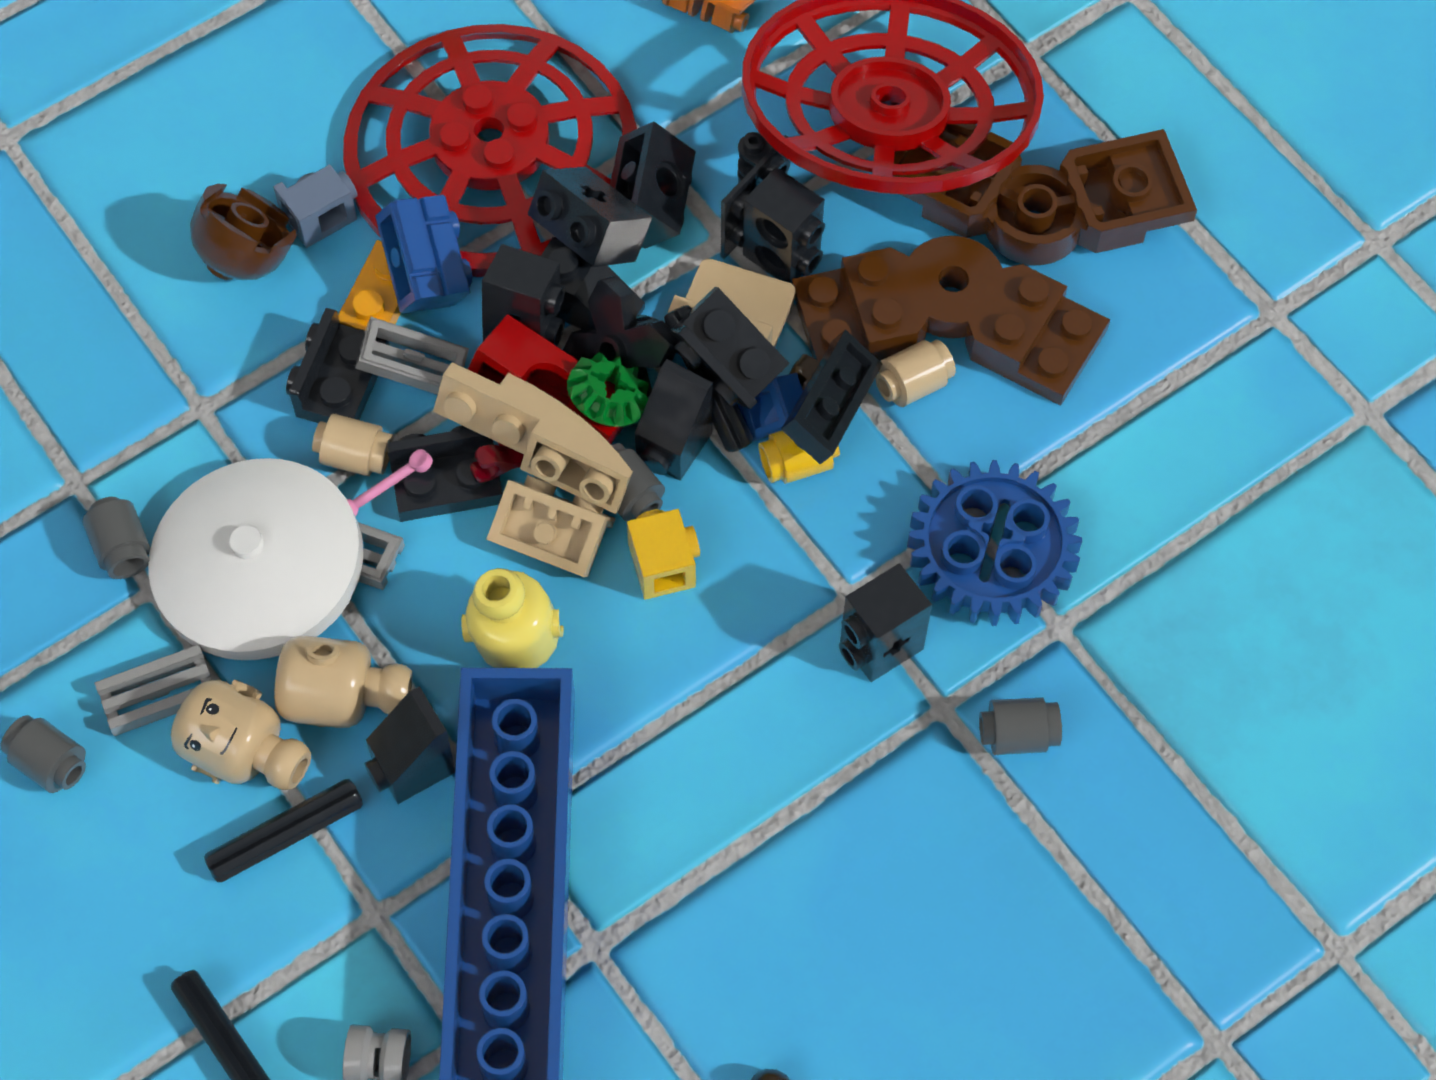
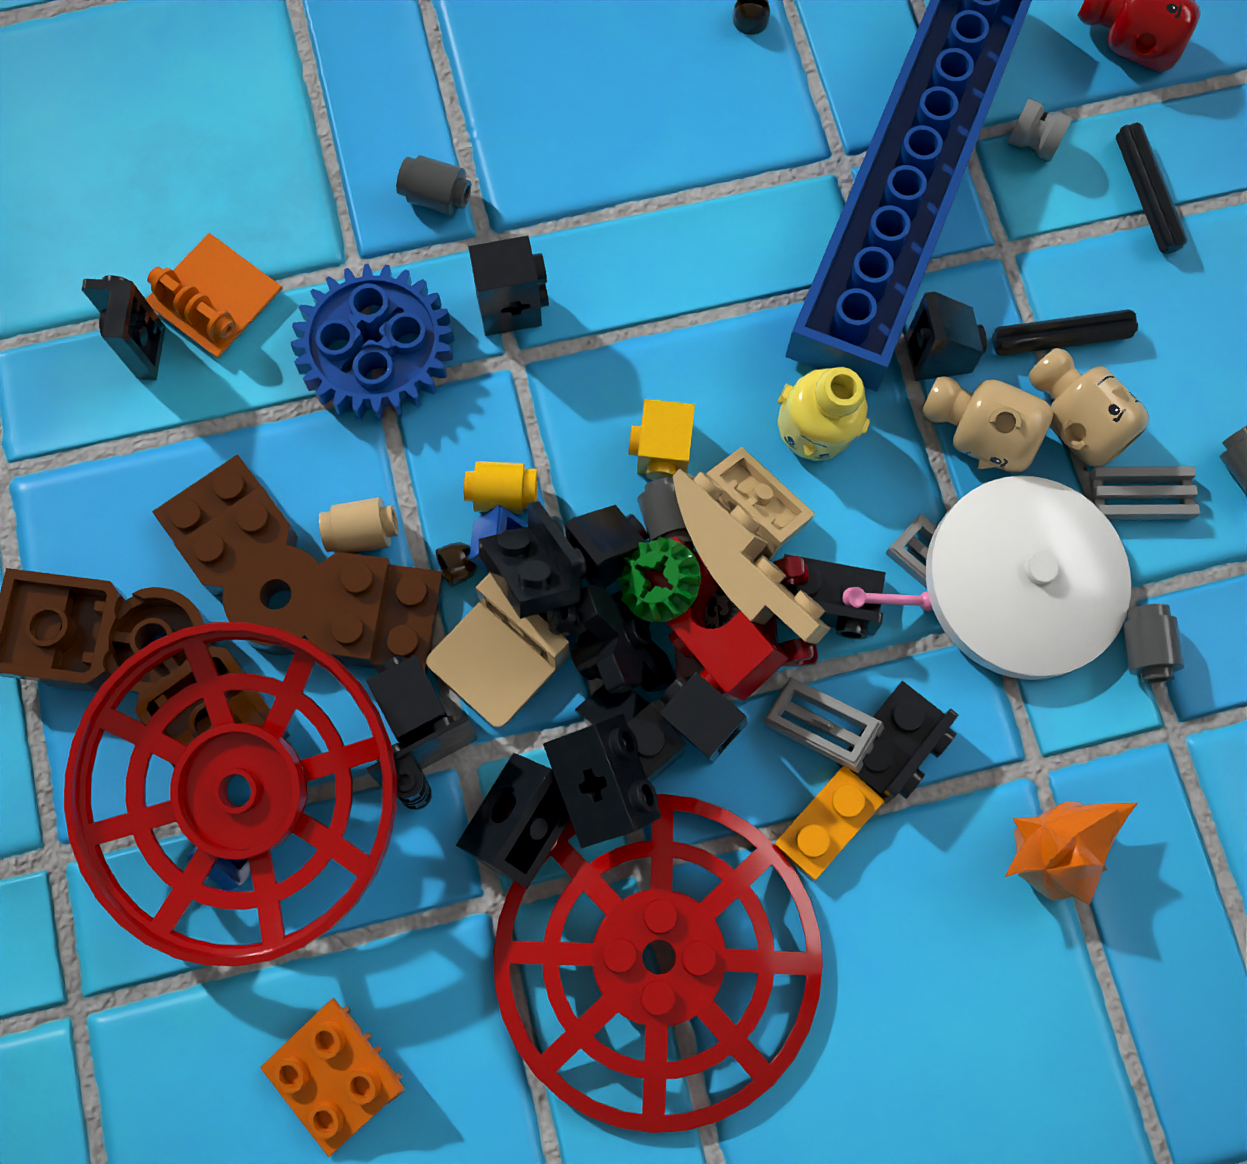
camera: 160 degrees left, 10 degrees up
(159, 329) = (1067, 847): none -> orange hair
(239, 234) = (956, 926): reddish brown cylinder -> none
(318, 204) = (864, 945): sand blue brick -> none
(352, 445) = (908, 653): tan brick -> none
(424, 253) = (778, 821): blue brick -> none
(832, 397) = (452, 498): black plate -> none
(1180, 538) = (211, 294): none -> orange hinge
(1224, 451) = (127, 323): none -> black bracket

